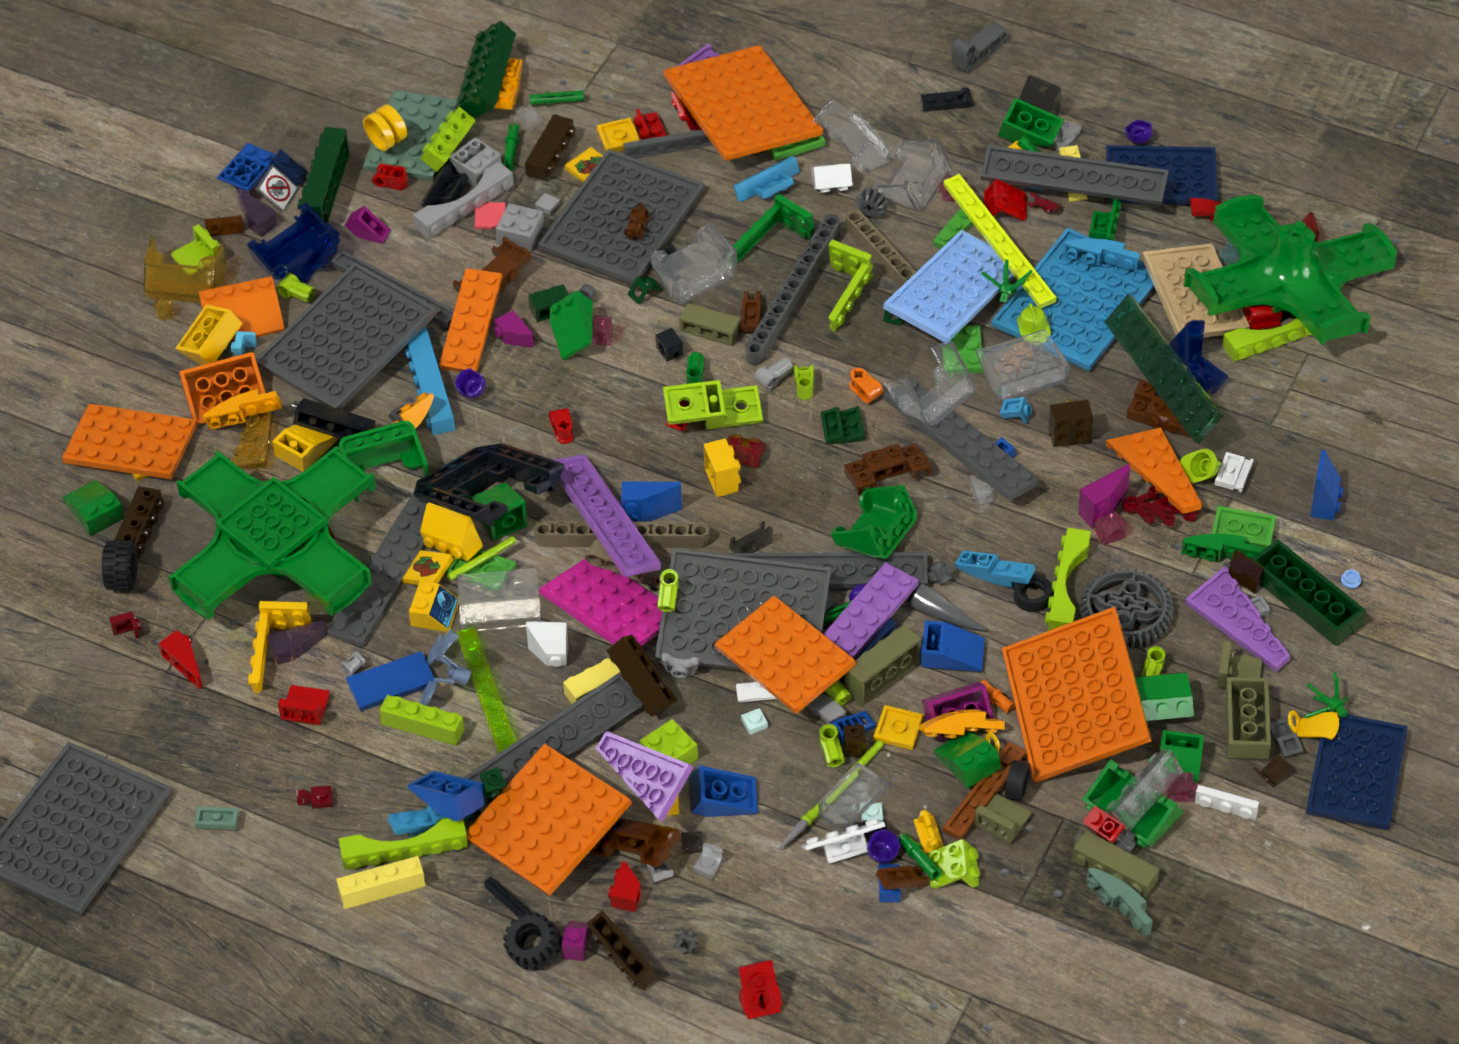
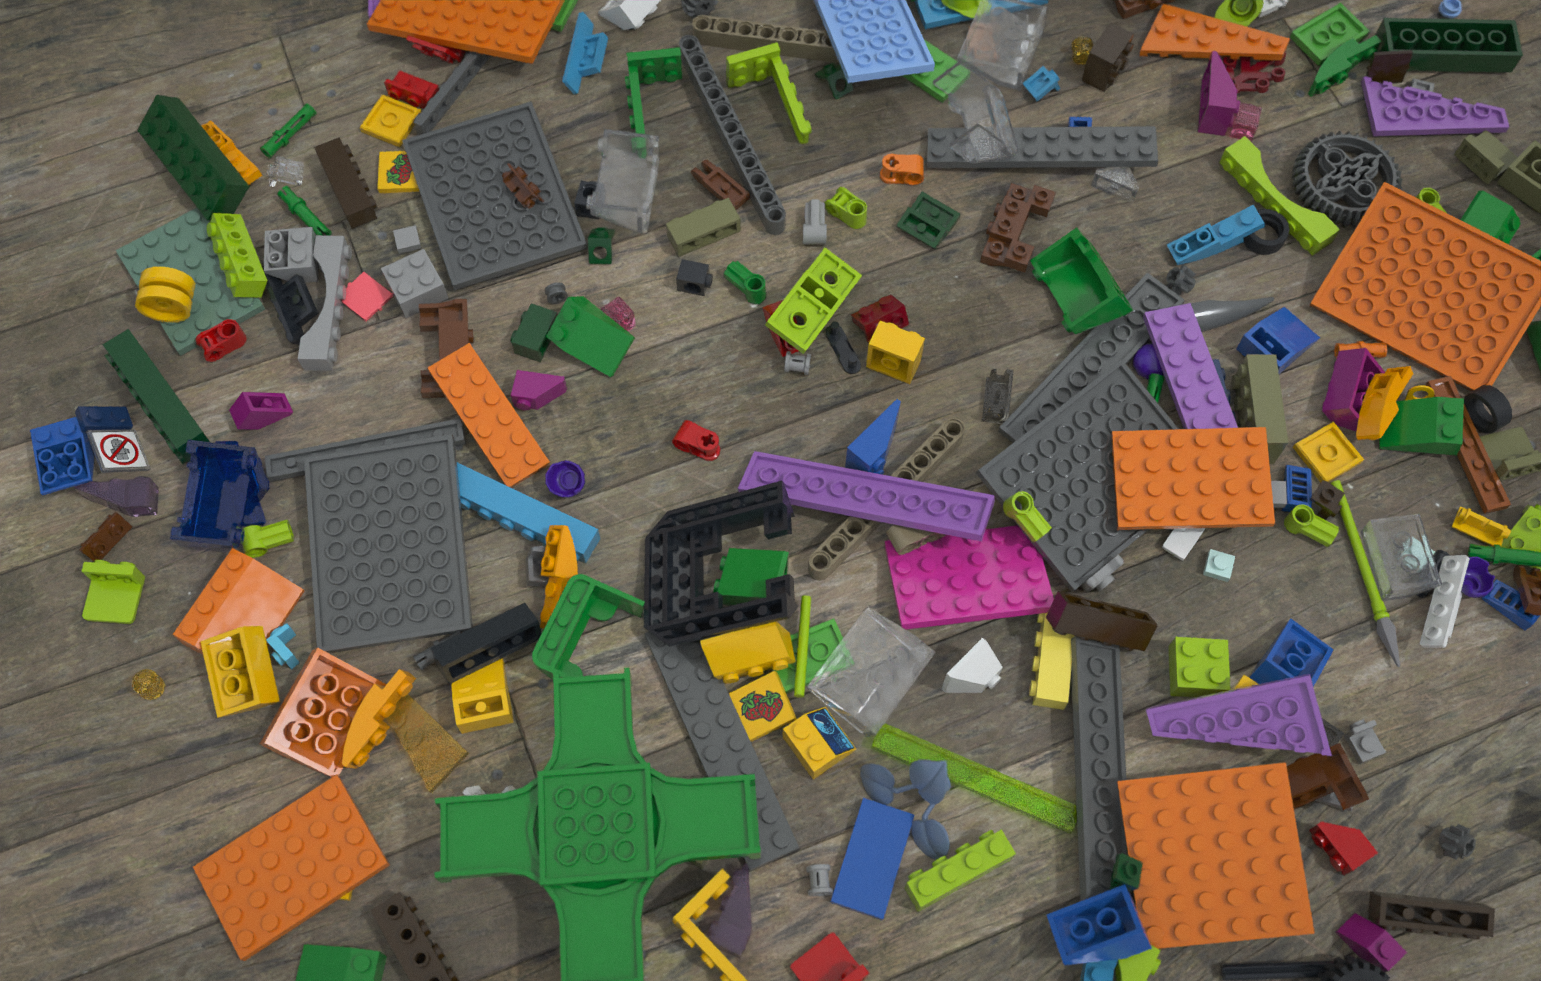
camera: 50 degrees left, 15 degrees up
(181, 281) = (131, 642): clear yellow windscreen -> none
(666, 432) = (797, 363): none -> light grey bush
(698, 457) = (843, 348): none -> black piece

